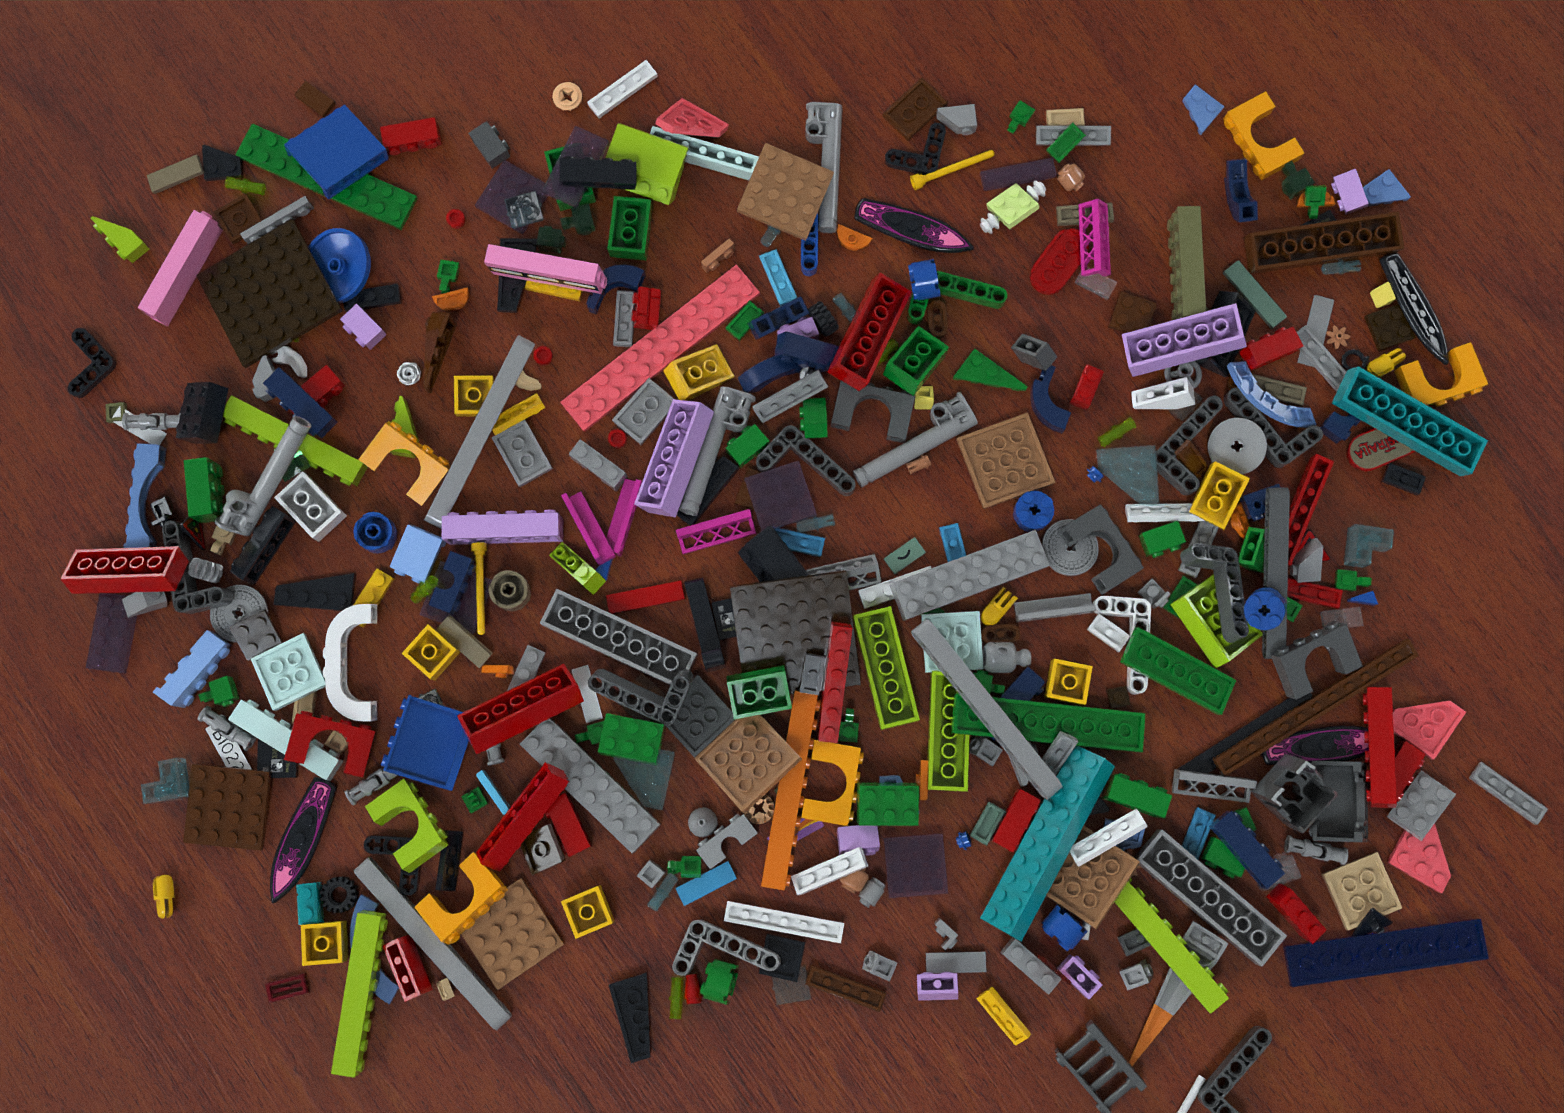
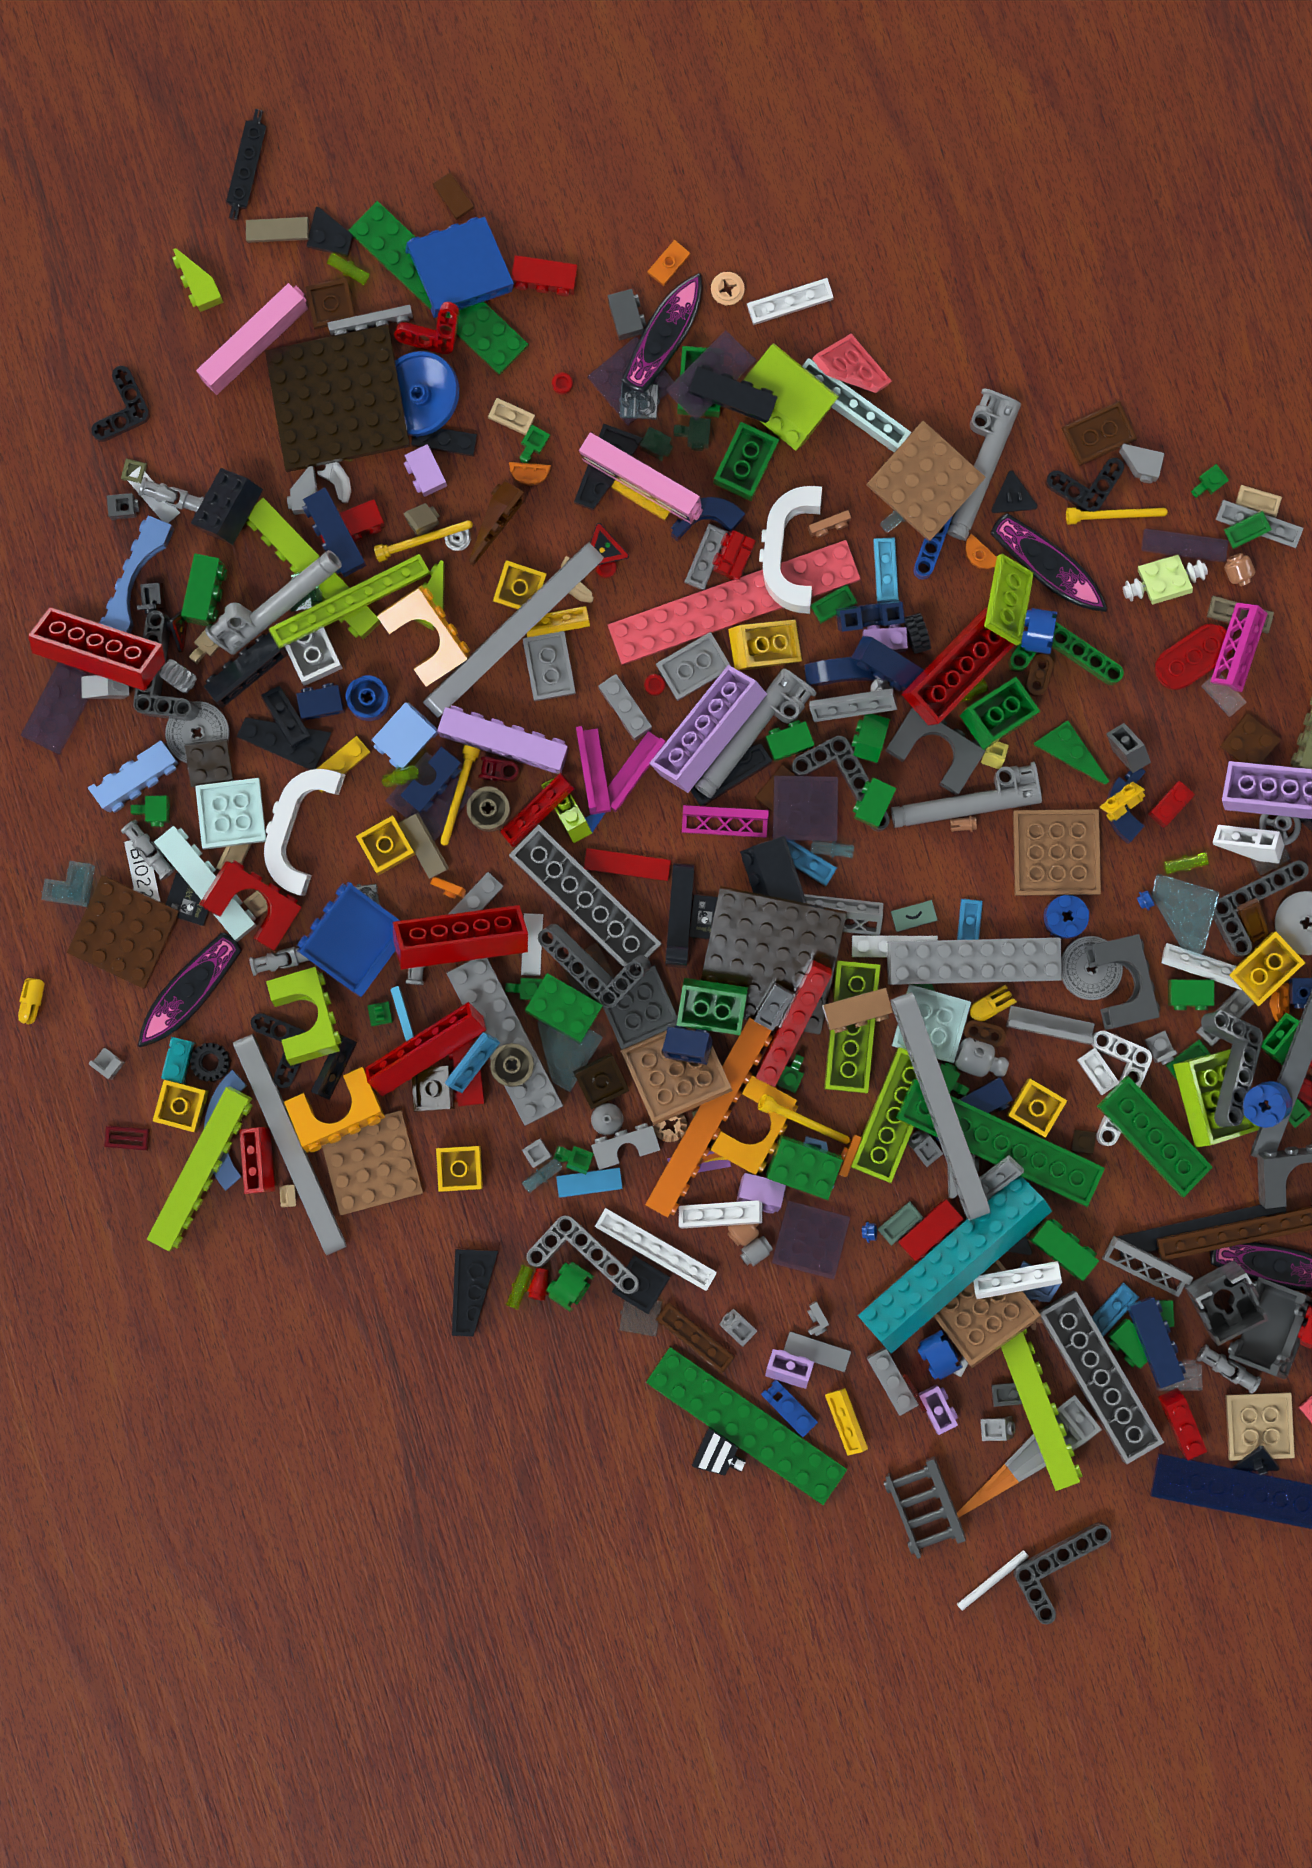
camera: 15 degrees right, 5 degrees up
(108, 444) = (115, 505): none -> dark grey brick
(132, 131) = (246, 164): none -> black plate
(249, 928) = (107, 1064): none -> light grey panel
(310, 573) = (285, 716): none -> black plate
(330, 456) = (349, 601): none -> lime plate
(335, 214) = (435, 336): none -> red beam
(336, 550) = (320, 702): none -> dark blue brick
(350, 406) = (384, 551): none -> yellow piece
(372, 368) = (422, 519): none -> dark tan slope
(421, 259) = (511, 416): none -> tan plate
(504, 555) = (497, 769): none -> dark red piece
(511, 92) = (668, 263): none -> orange plate
(526, 150) = (663, 334): none -> black piece
(540, 337) = (607, 546): none -> piece
(552, 577) = (537, 810): none -> red tile
(567, 814) = (472, 1062): none -> dark azure tile
(591, 808) = (524, 1063): none -> dark tan brick
(680, 250) = (794, 502): none -> white arch
(686, 790) = (601, 1081): none -> dark brown plate
(749, 733) = (687, 1045): none -> dark blue brick
(837, 470) = (874, 802): none -> green brick
(837, 760) = (768, 1104): none -> yellow piece
(844, 306) = (946, 627): clear light blue axle -> none
(862, 183) = (1013, 496): none -> black piece
(885, 651) = (857, 1010): none -> medium nougat brick
(889, 264) = (1009, 599): none -> lime tile
(901, 1086) = (717, 1454): none -> torso
(918, 1051) = (746, 1426): none -> green plate
(950, 1021) = (790, 1409): none -> blue plate
(1050, 390) = (1130, 795): none -> yellow hinge

